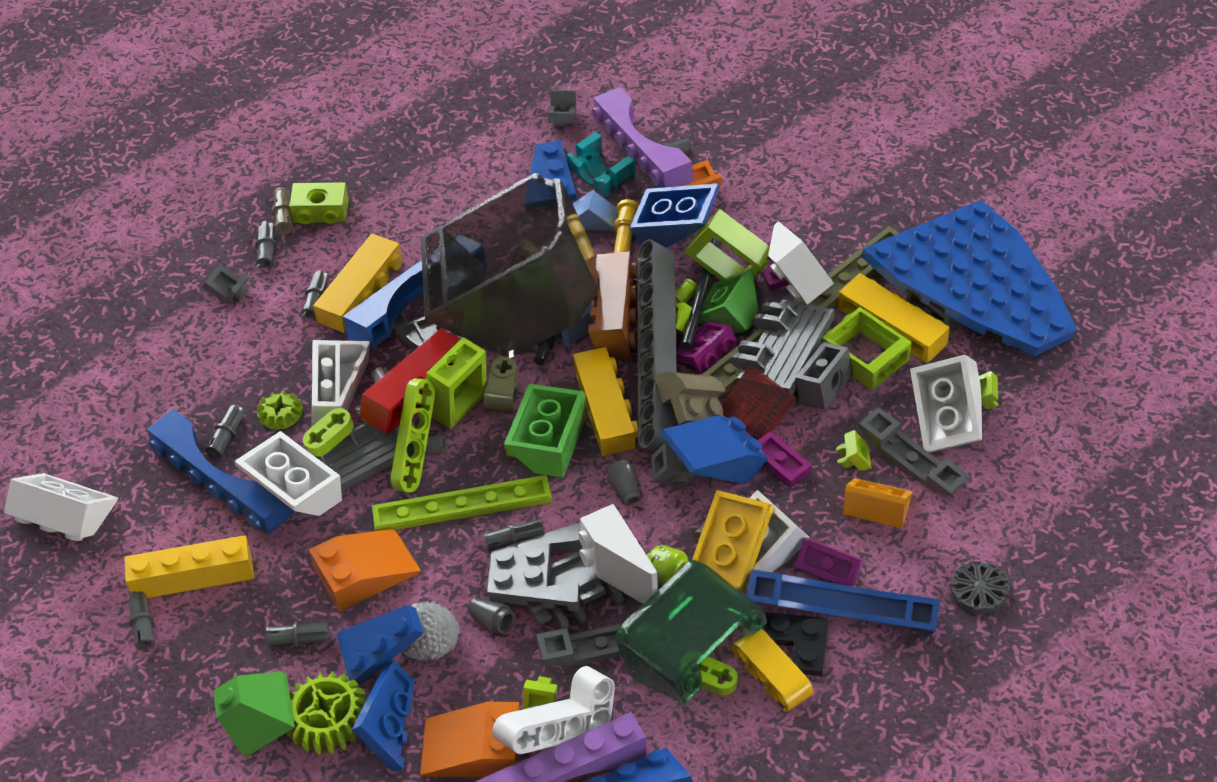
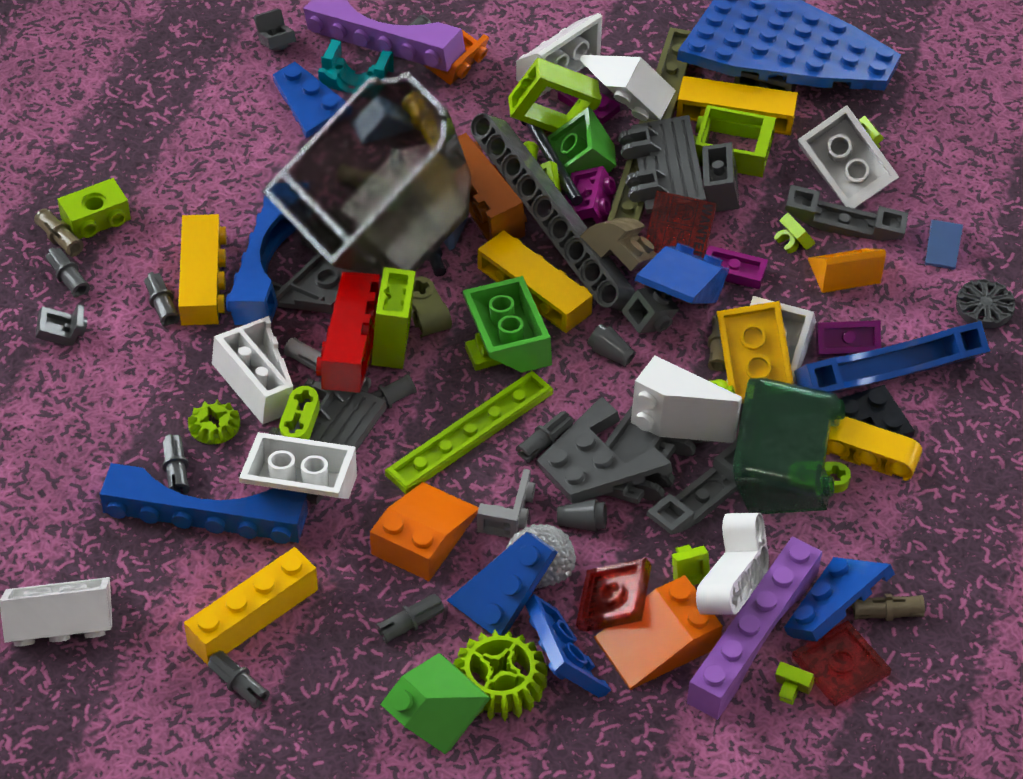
camera: 35 degrees left, 0 degrees up
(408, 434) = (388, 383): lime beam -> none
(439, 590) = (506, 521): none -> light grey bracket
(459, 691) = (614, 595): none -> clear red tile
(673, 213) = (477, 83): blue slope -> none
(792, 210) = (566, 47): none -> white slope
(984, 515) = (943, 244): none -> medium blue slope

